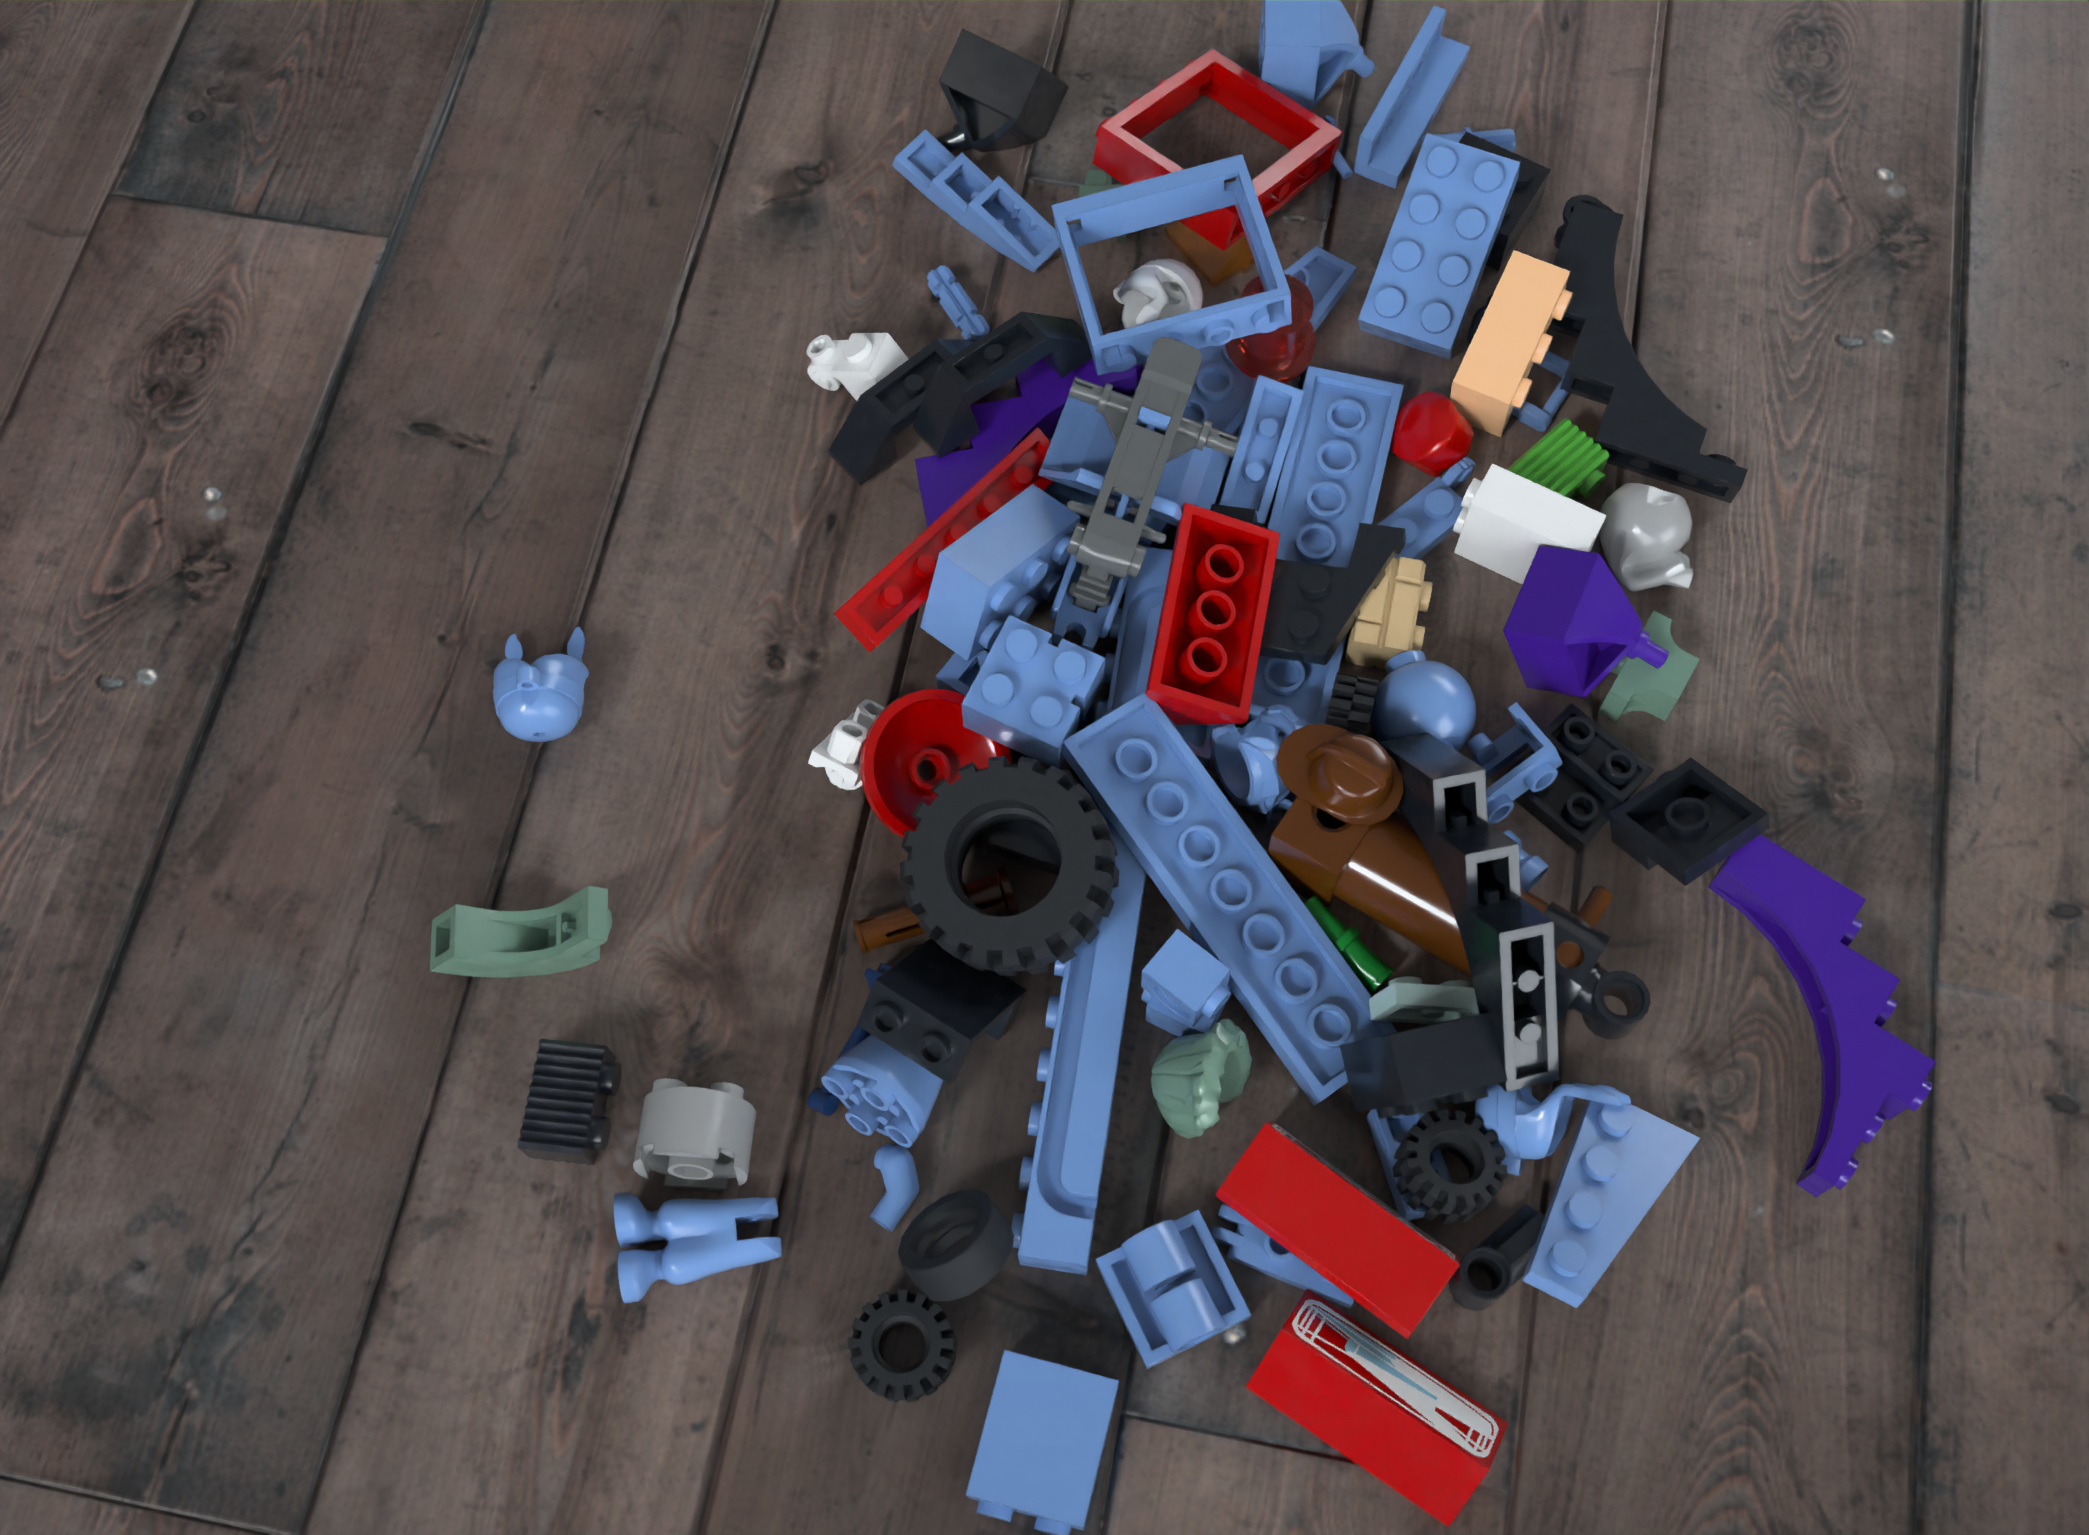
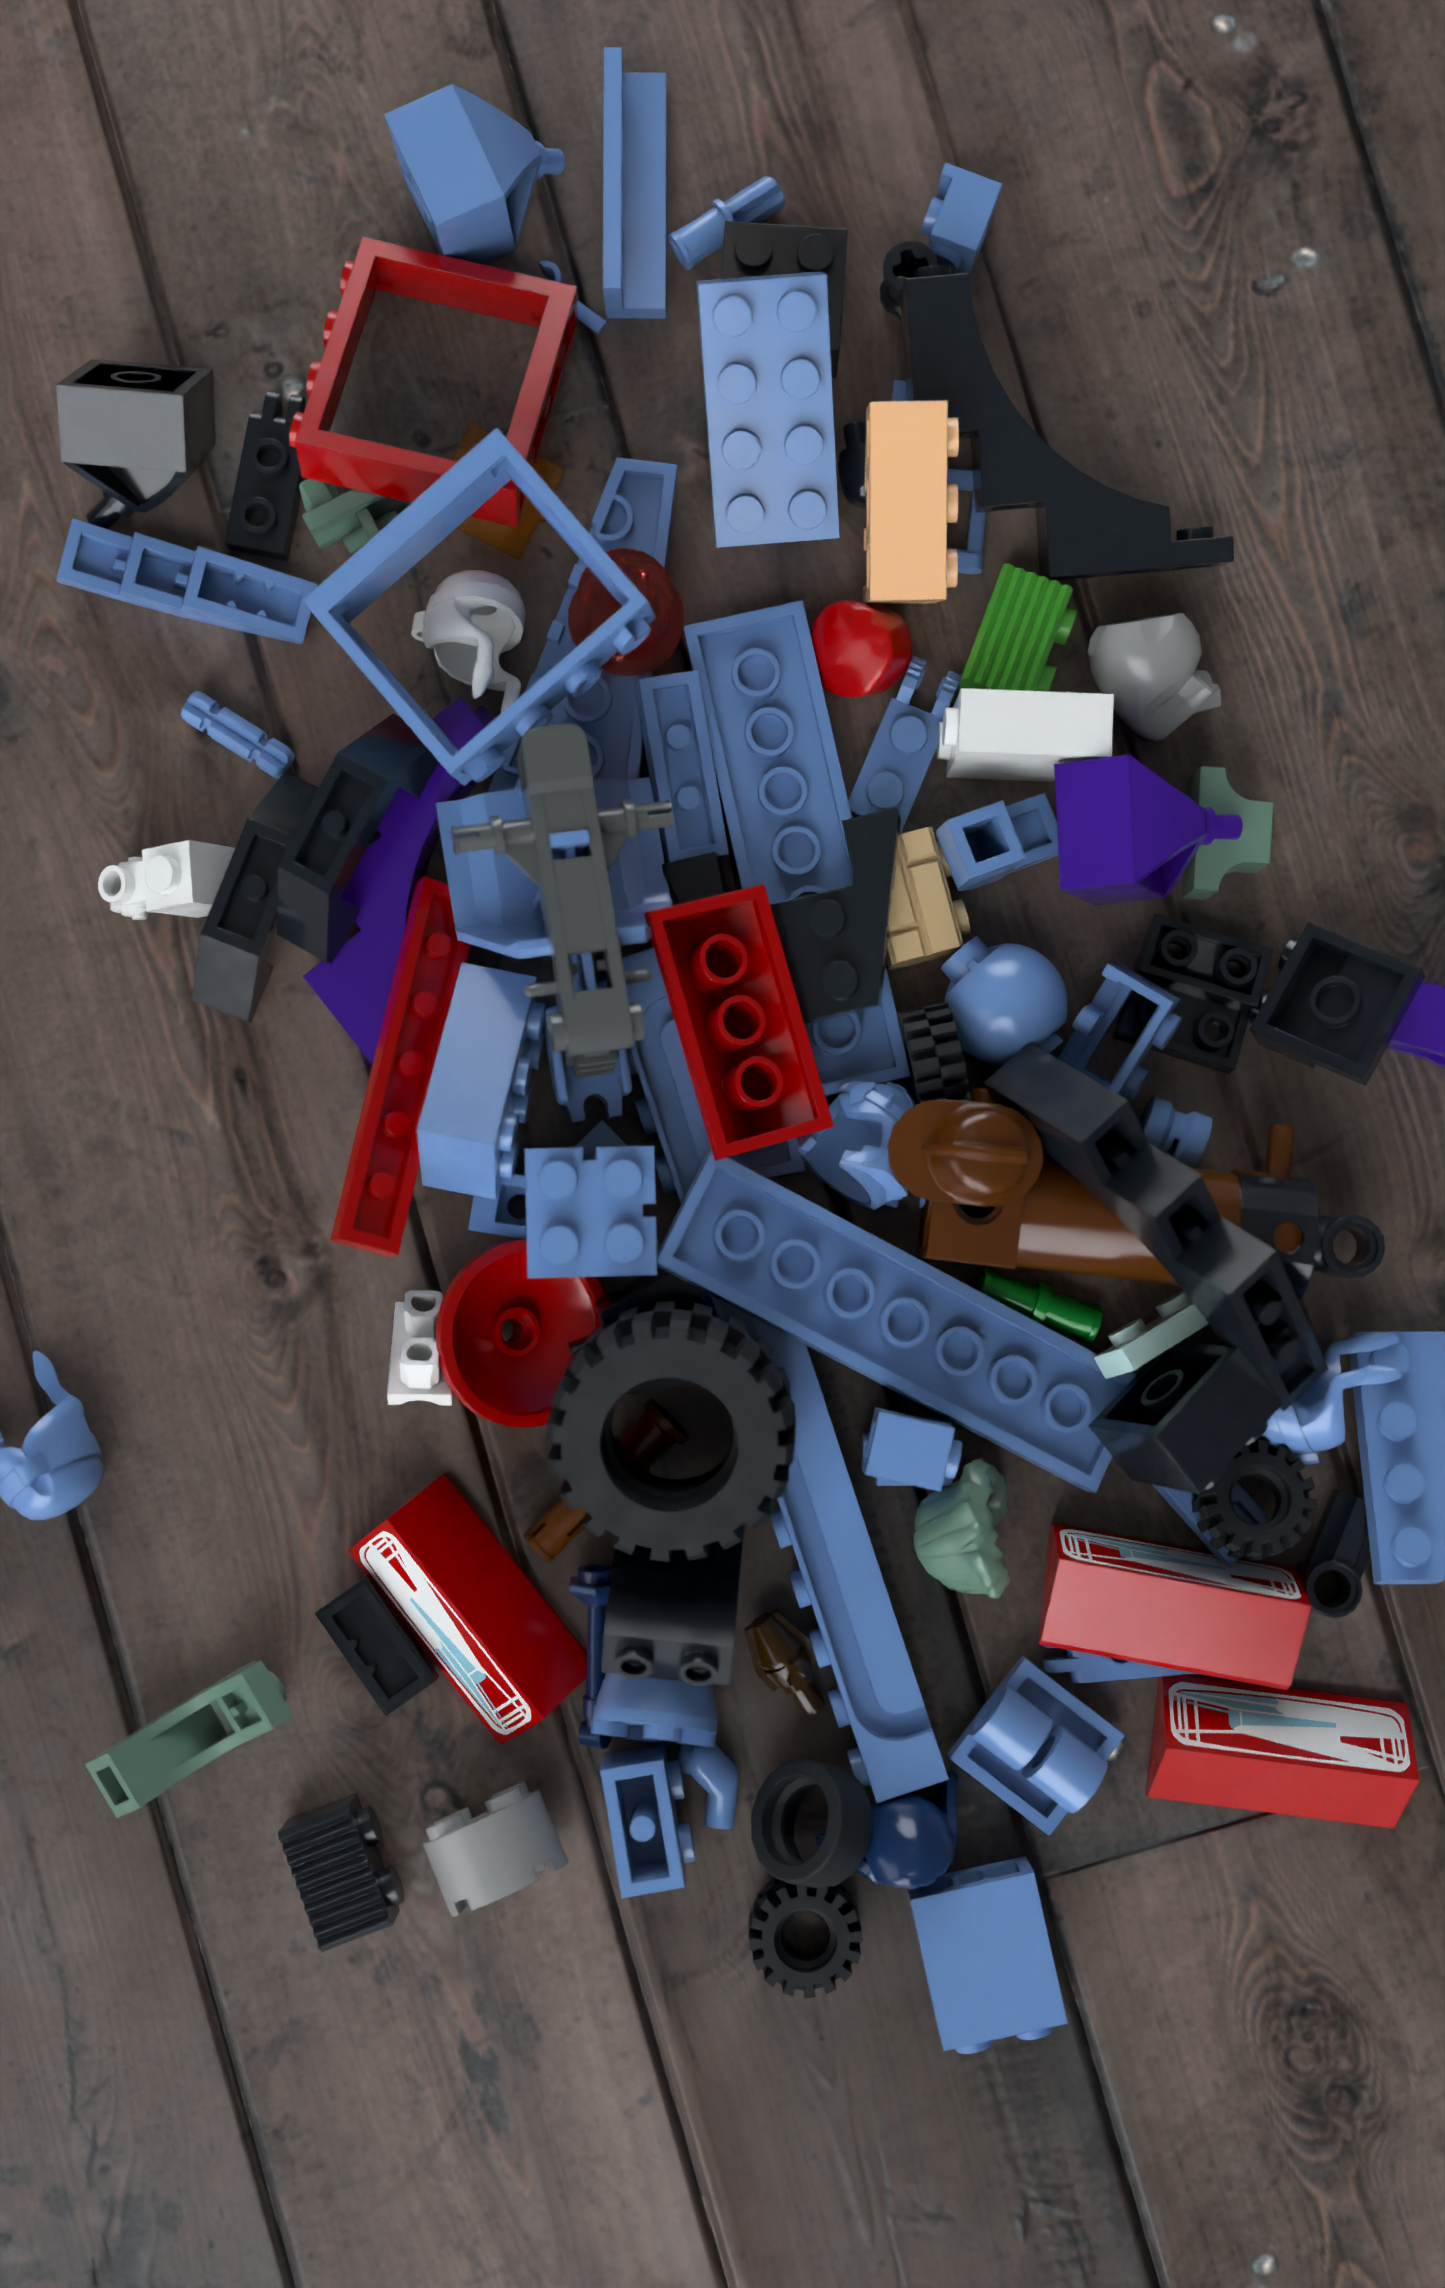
camera: 30 degrees left, 20 degrees up
(696, 948) = (377, 1645): none -> black plate
(698, 1237) = (549, 1936): medium blue piece -> none
(782, 959) = (473, 1609): none -> red slope
(825, 1176) = (644, 1820): none -> medium blue brick
(1003, 1115) = (784, 1659): none -> dark brown piece
(1027, 1299) = (911, 1838): none -> dark blue piece
(1062, 171) = (267, 483): none -> black hinge
(1464, 597) = (998, 841): none -> medium blue brick
(1642, 203) = (960, 217): none -> medium blue brick

